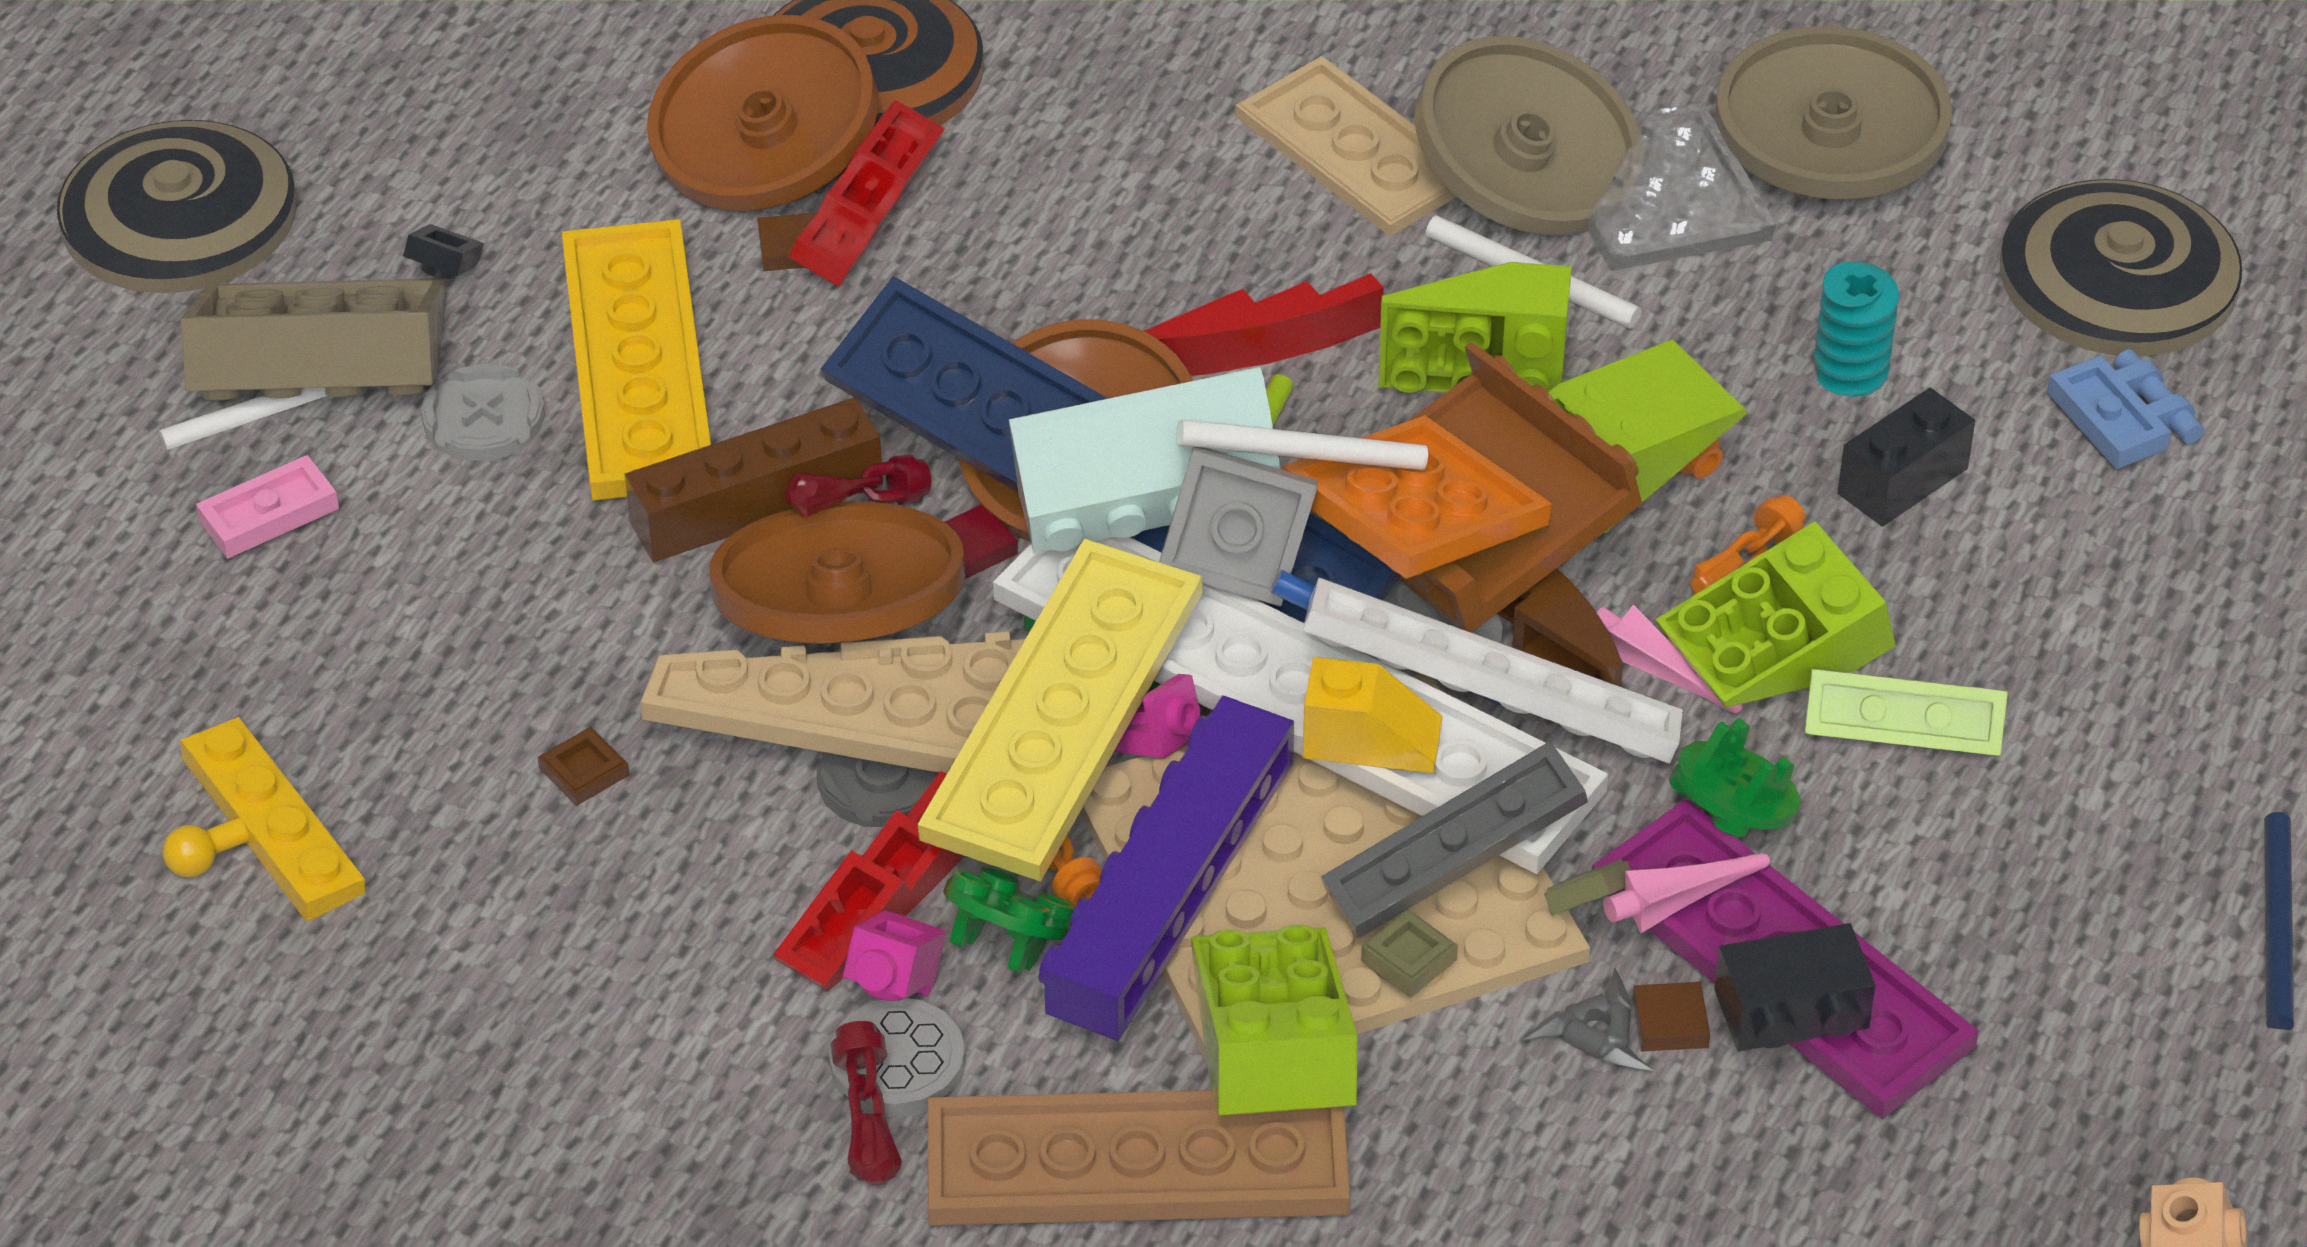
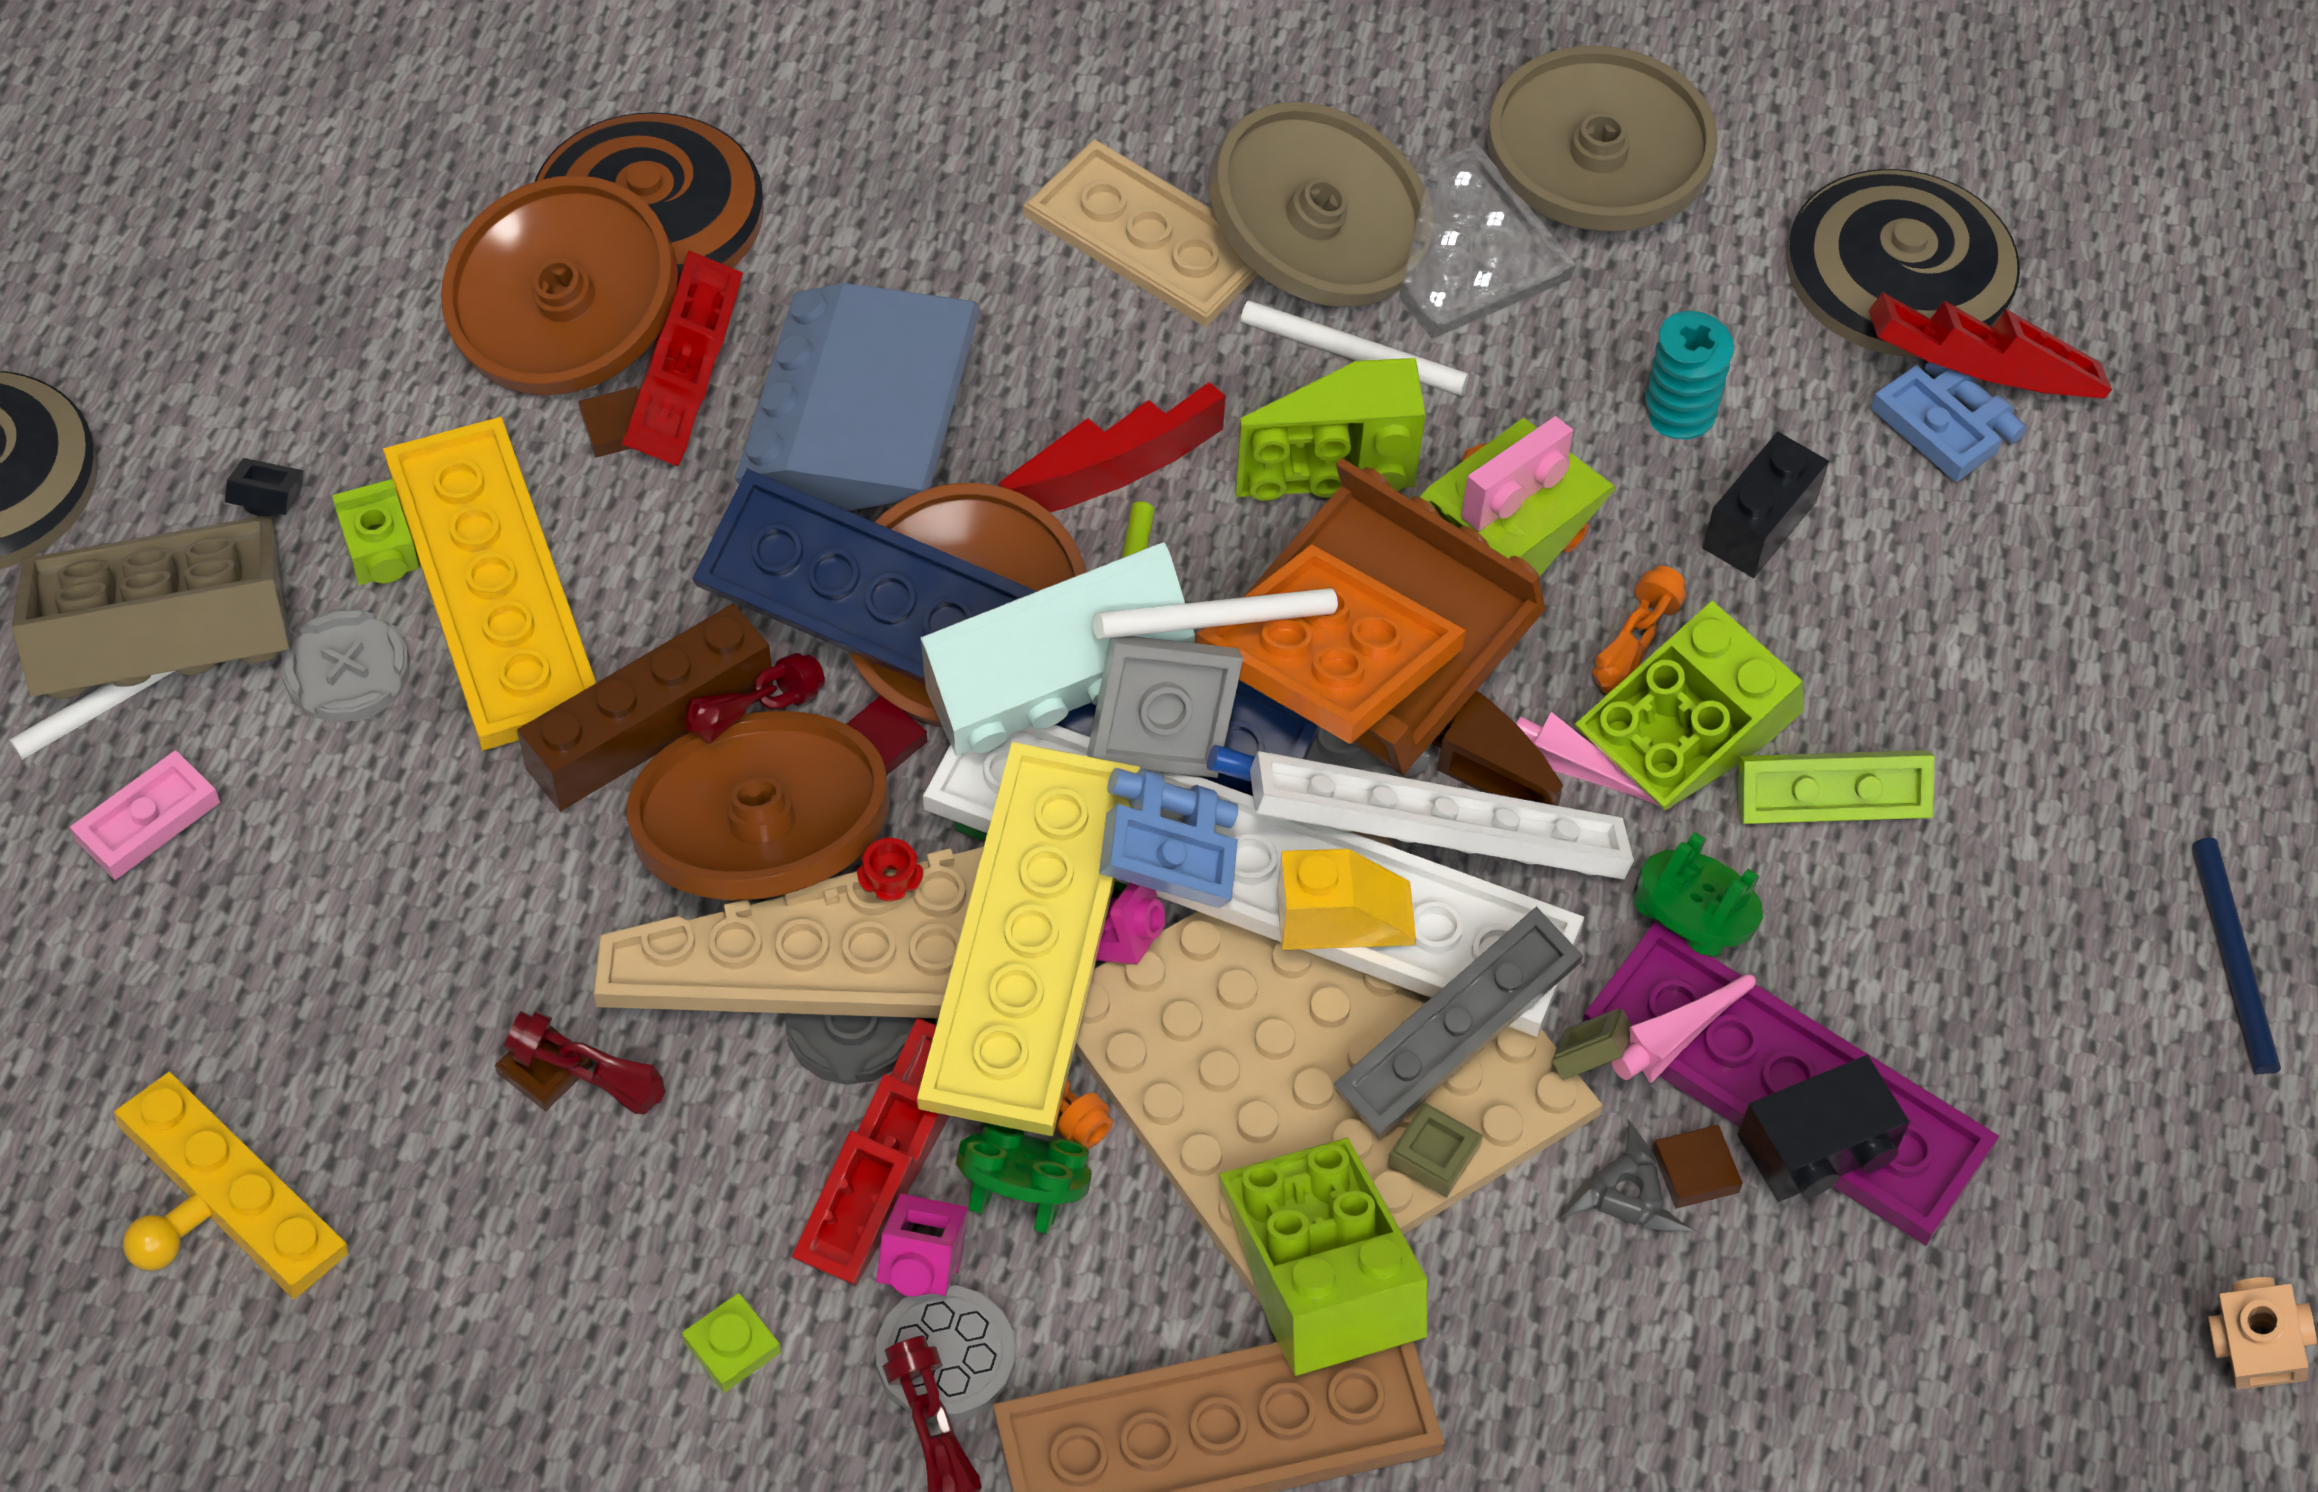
camera: 15 degrees left, 10 degrees up
(537, 301) = (375, 533): none -> lime brick
(657, 787) = (631, 1083): none -> dark red piece
(698, 1016) = (731, 1342): none -> lime plate
(943, 635) = (885, 855): none -> red plate
(1027, 233) = (860, 393): none -> sand blue slope
(1167, 868) = (1177, 1099): dark purple brick -> none
(1207, 650) = (1165, 853): none -> medium blue plate
(1642, 378) = (1517, 473): none -> bright pink plate
(2202, 358) = (2004, 354): none -> red slope

